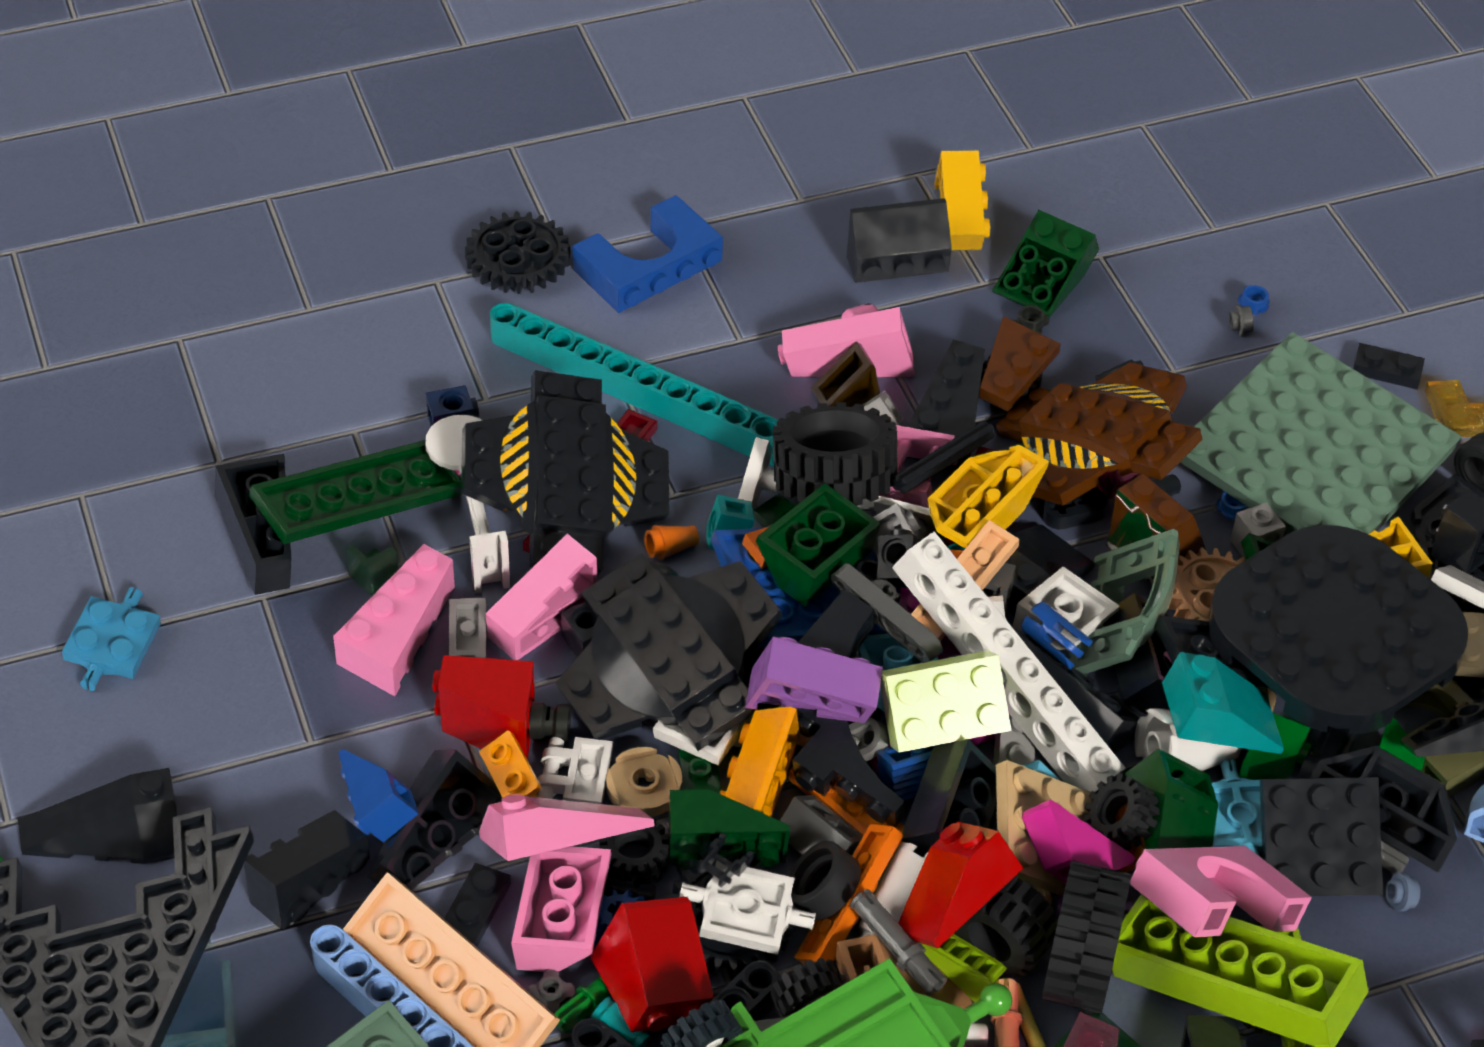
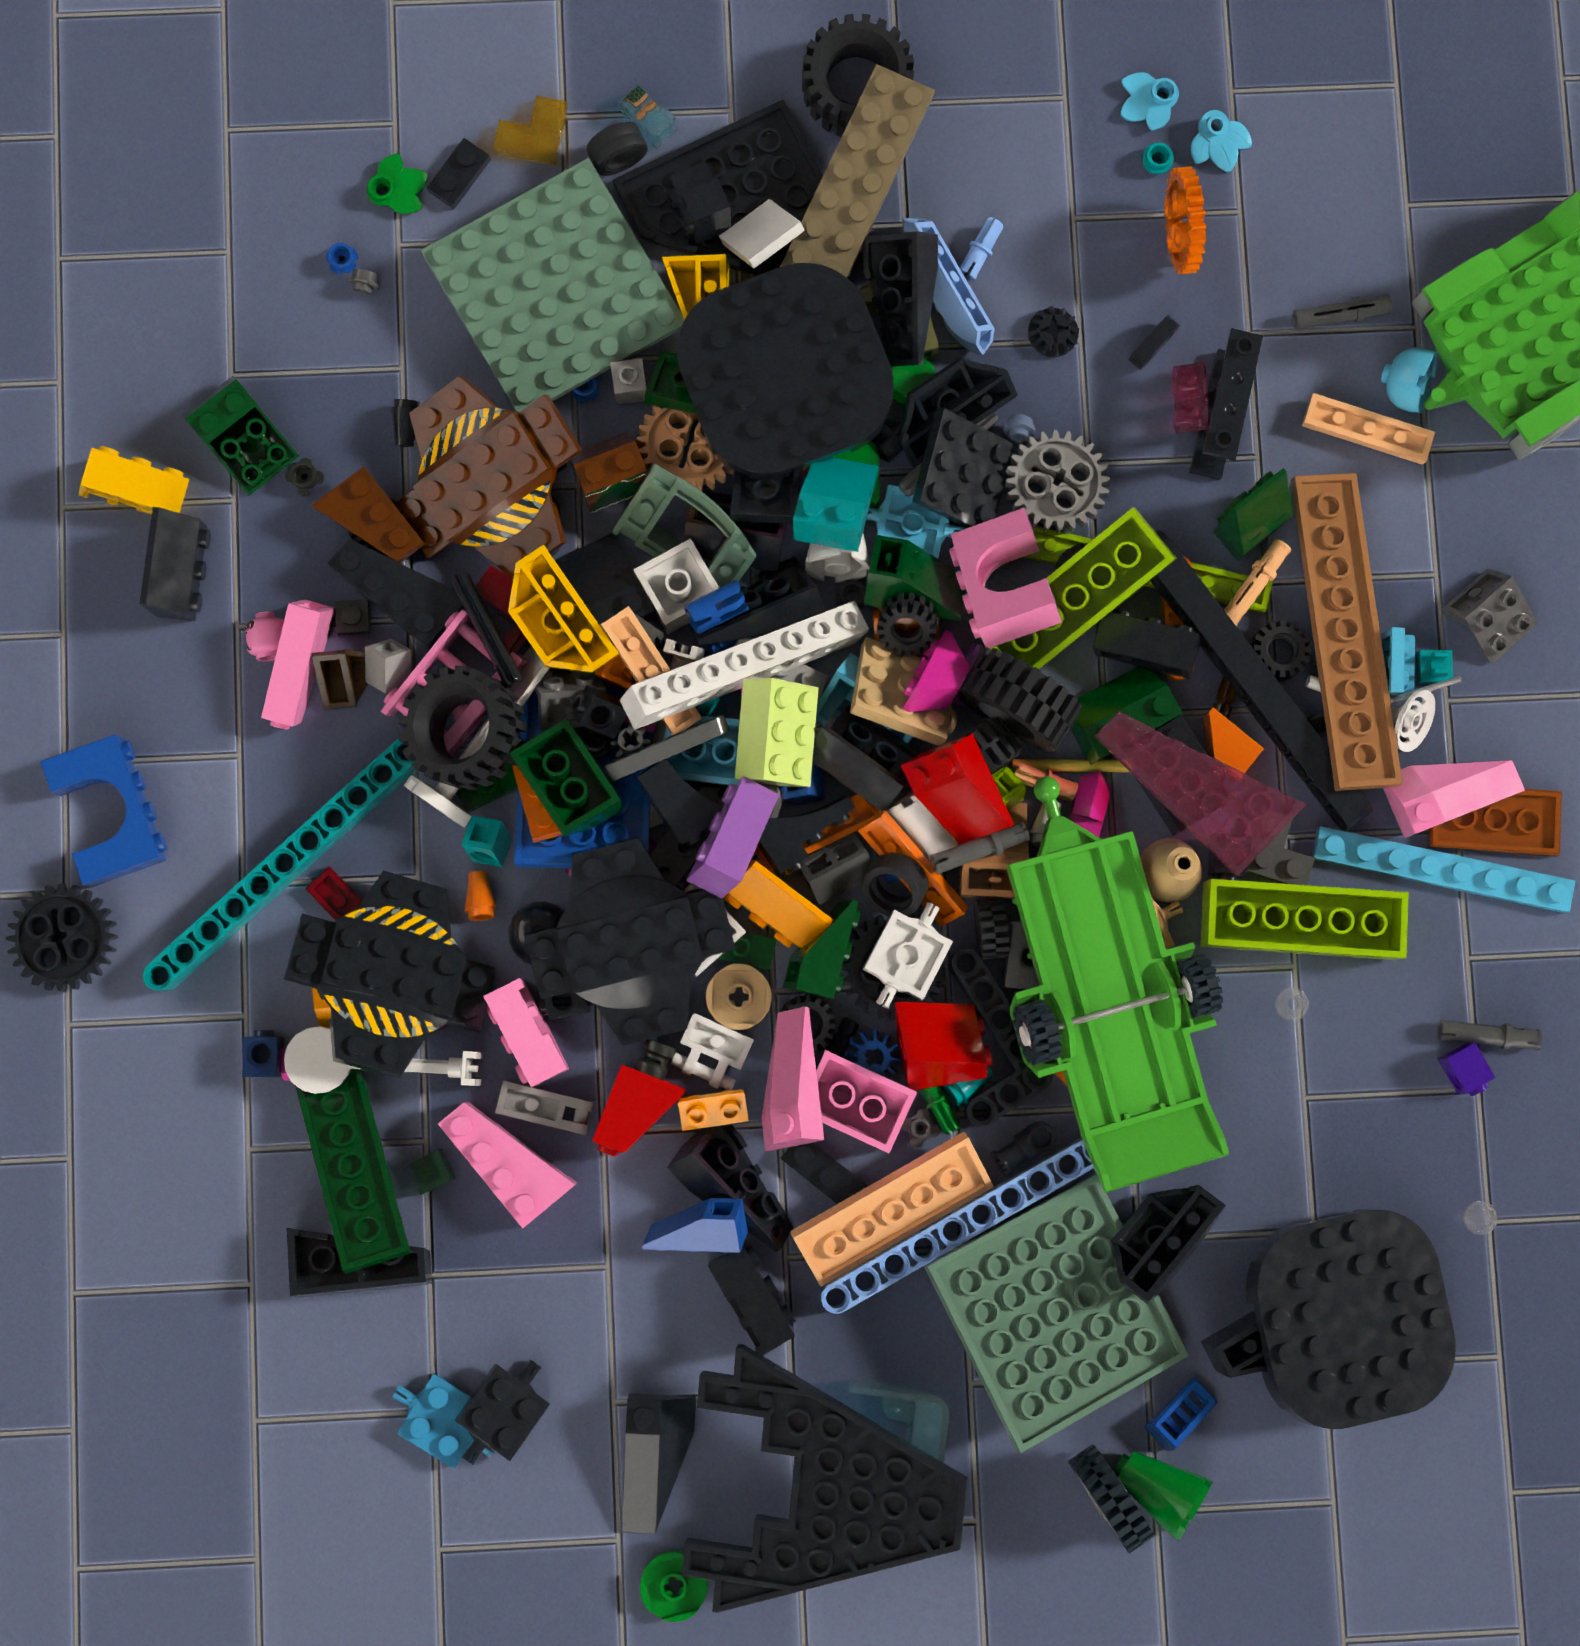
camera: 80 degrees left, 35 degrees up
(131, 676) = (502, 1412): none -> black plate
(736, 867) = (865, 969): black piece -> none
(909, 386) = (353, 617): none -> pearl dark grey plate
(1347, 323) = (402, 186): none -> green plate
(1390, 943) = (1070, 457): none -> light grey gear

